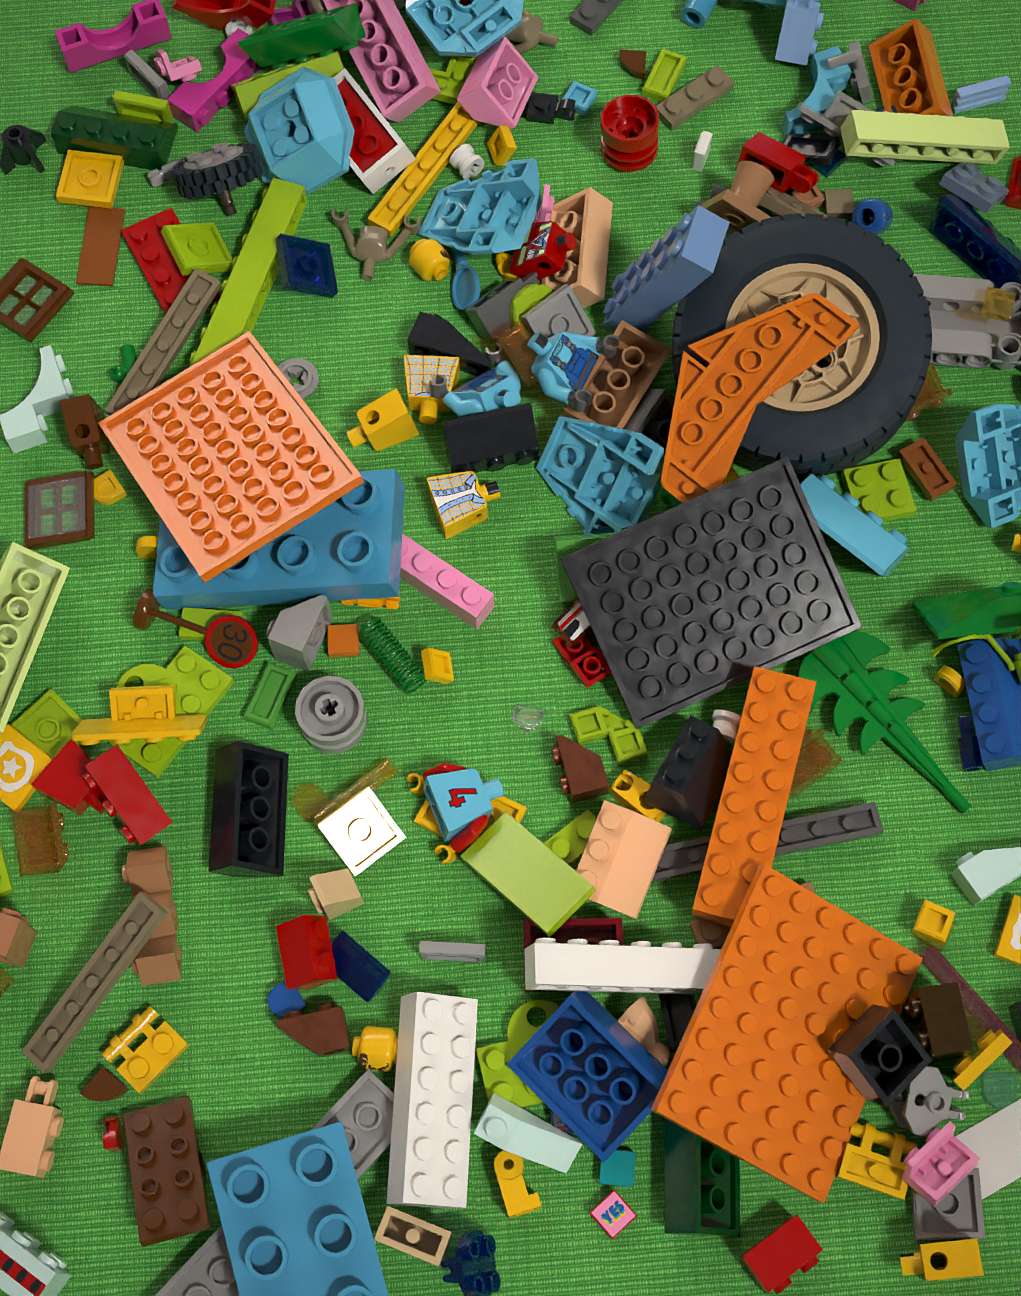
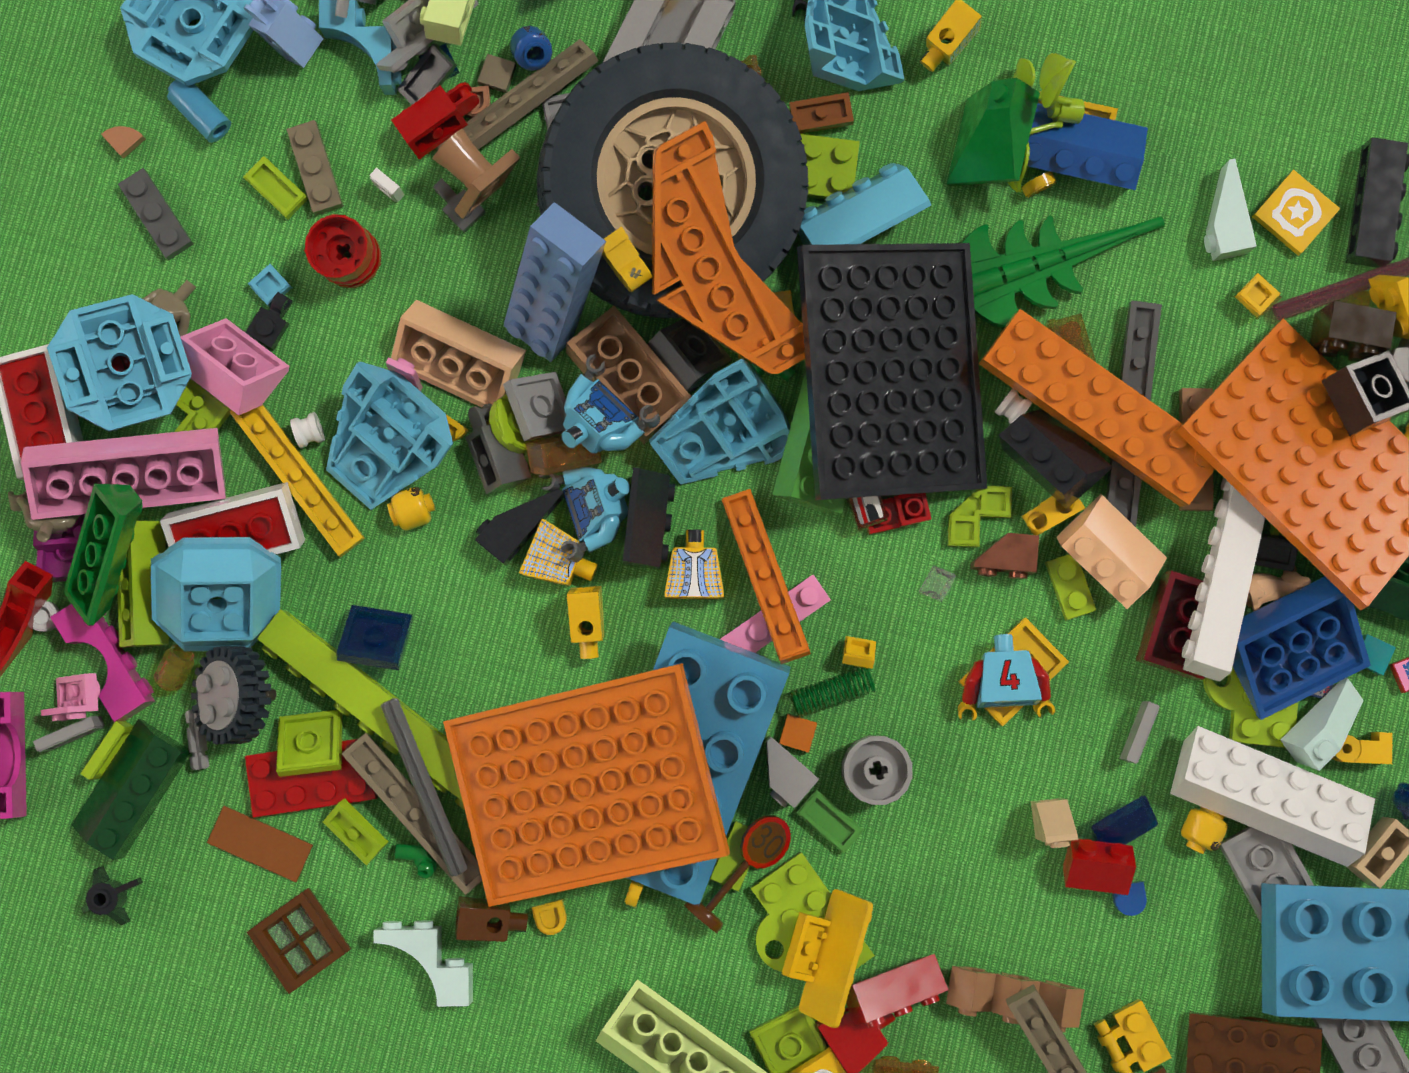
camera: 65 degrees left, 15 degrees up
(59, 510) = (559, 971): clear piece -> none
(90, 179) = (176, 832): yellow plate -> none
(133, 309) = (355, 831): none -> lime plate
(187, 340) = (424, 787): none -> dark grey axle
(227, 129) = (174, 668): none -> clear yellow brick
(248, 811) = (943, 878): black slope -> none
(301, 368) = (483, 686): light grey gear -> none
(309, 800) = (948, 816): clear yellow tile -> none
(319, 1032) = (1172, 878): copper slope -> none
(360, 830) = (999, 779): plate -> none
(372, 242) = (367, 560): dark tan piece -> none
(375, 778) = (960, 779): clear yellow pin -> none
(465, 283) = (454, 483): dark azure piece -> none
(475, 554) = (766, 577): none -> orange tile
(501, 145) = (301, 387): yellow tile -> none
(528, 874) = (1100, 640): lime tile -> none
(542, 250) = (452, 389): red torso -> none
(634, 62) = (247, 212): reddish brown tile -> none
(709, 309) = (625, 260): none -> yellow leg
(968, 746) = (1105, 193): clear blue bar -> none

